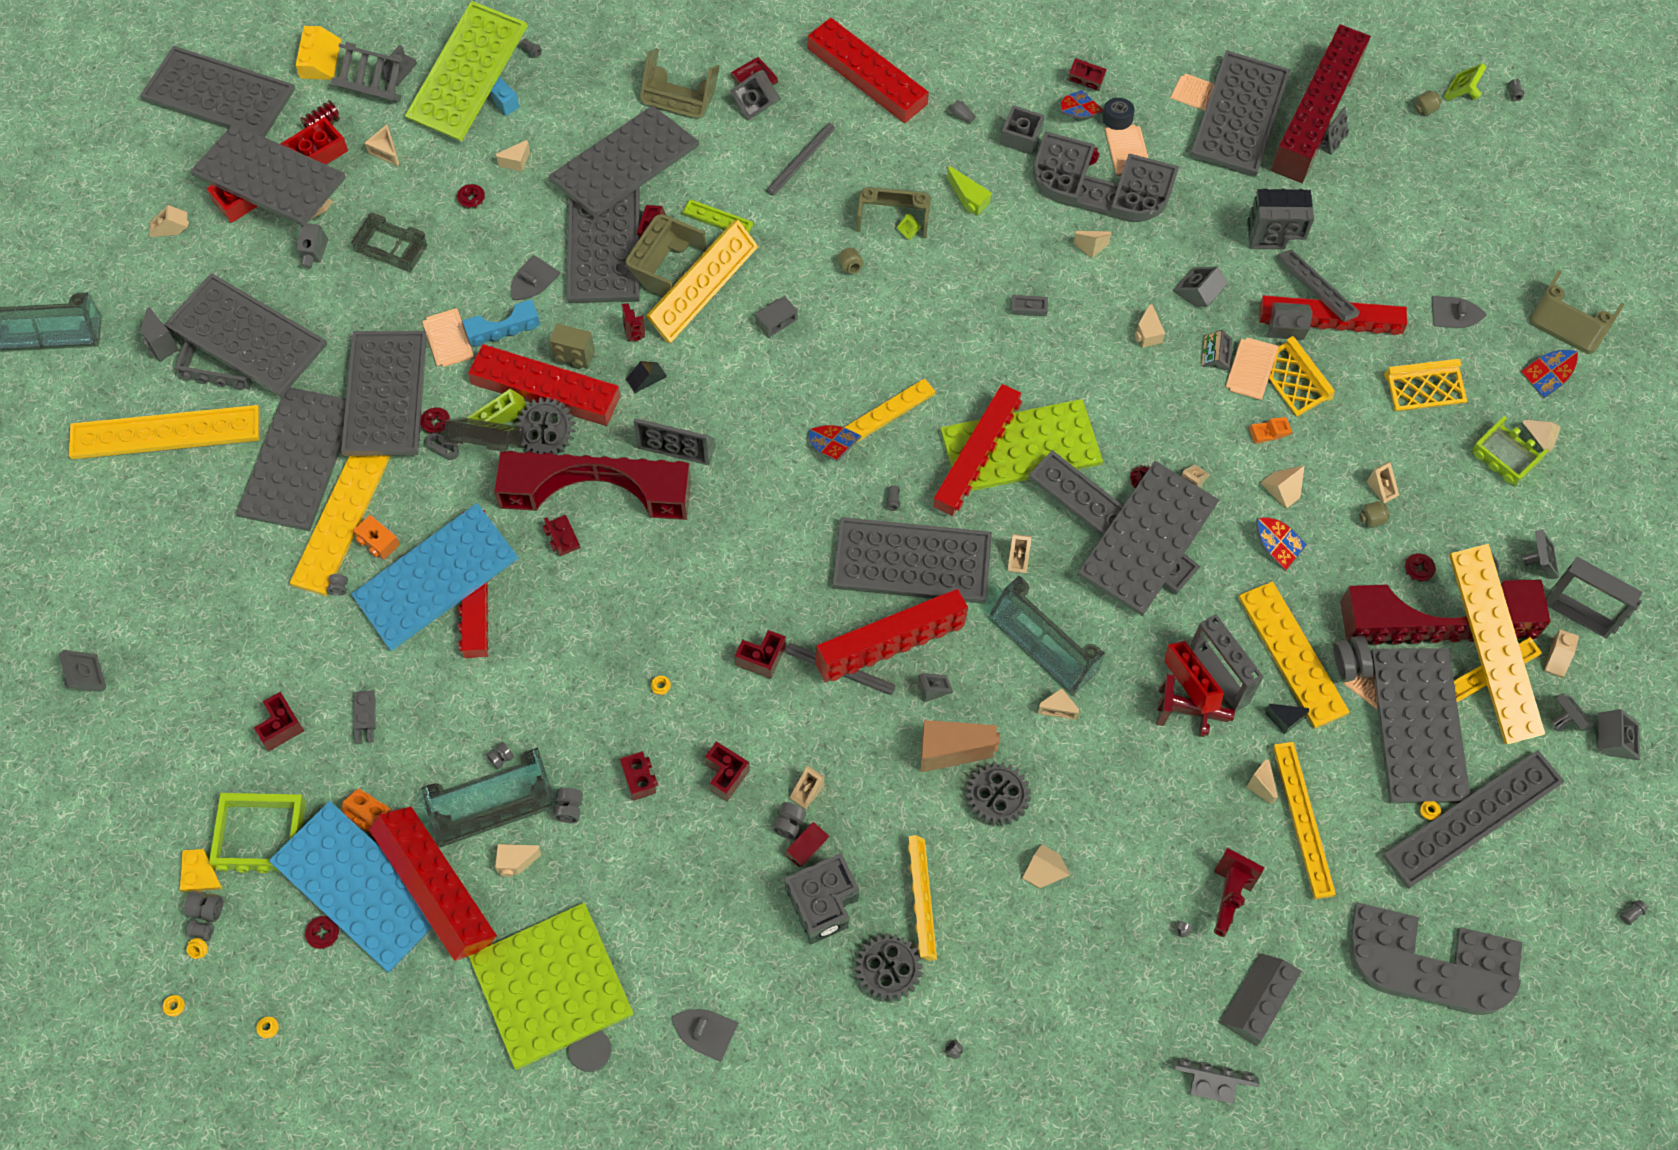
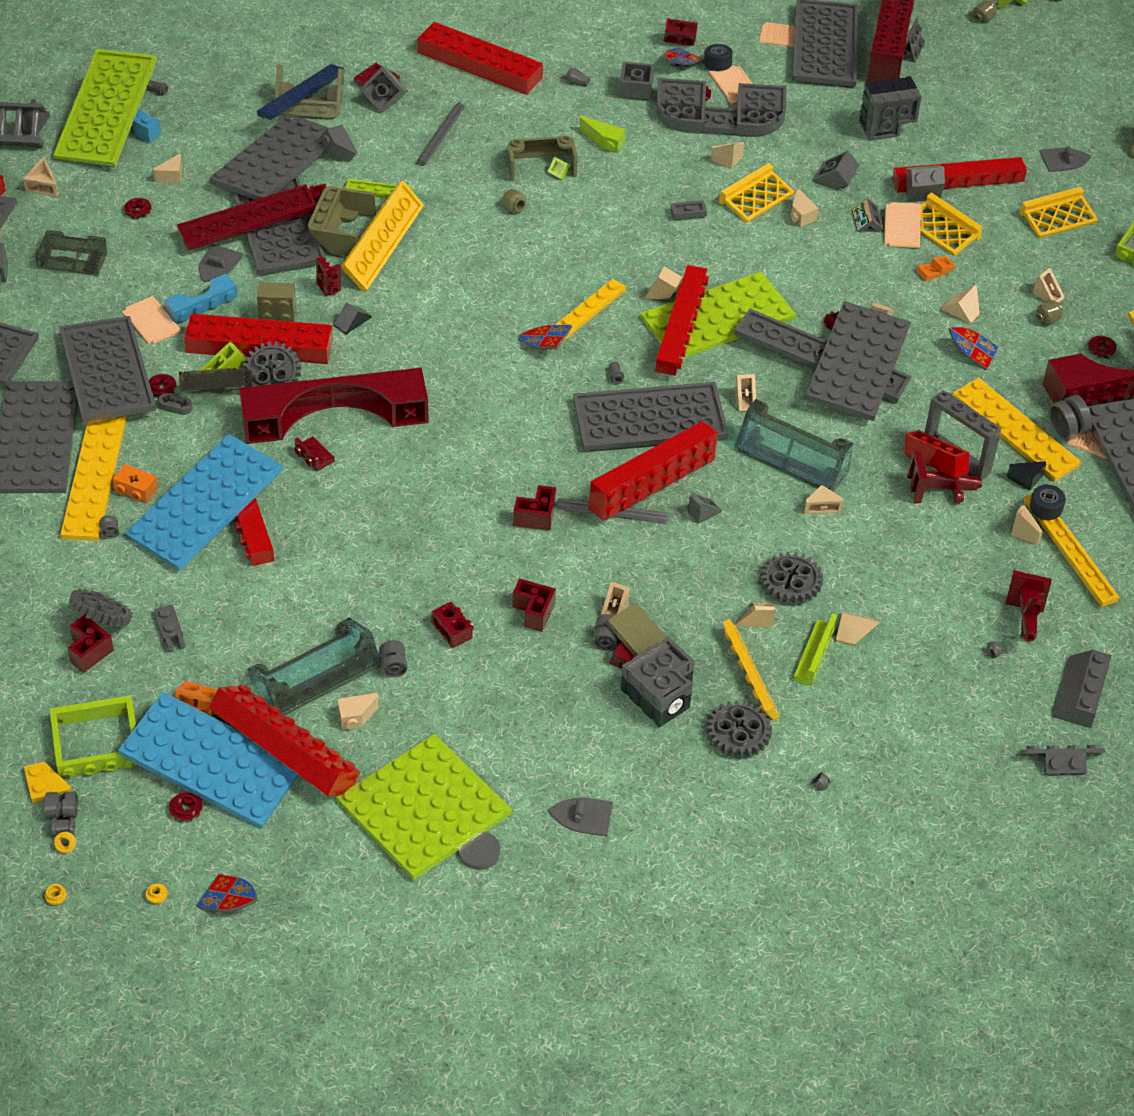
camera: 15 degrees left, 15 degrees down
(298, 685) = (100, 608): none -> dark grey gear
(333, 1047) = (228, 894): none -> shield
(503, 751) = (313, 633): dark grey wheel -> none
(572, 233) = (246, 217): none -> dark red plate
(657, 680) = (448, 552): yellow plate -> none
(668, 83) = (299, 92): none -> dark blue tile
(674, 442) = (398, 353): dark grey slope -> none
(689, 155) = (338, 143): none -> dark grey slope
(776, 316) = (460, 253): dark grey brick -> none
(818, 832) = (635, 629): none -> olive tile
(951, 830) = (758, 615): none -> tan slope
(956, 743) = (741, 543): medium nougat slope -> none
(973, 401) = (664, 285): none -> tan slope
(996, 888) = (815, 651): none -> lime fence
(1102, 284) = (748, 185): none -> yellow fence
(1293, 769) = (1047, 502): none -> black wheel
(1318, 285) = (939, 153): dark grey tile -> none

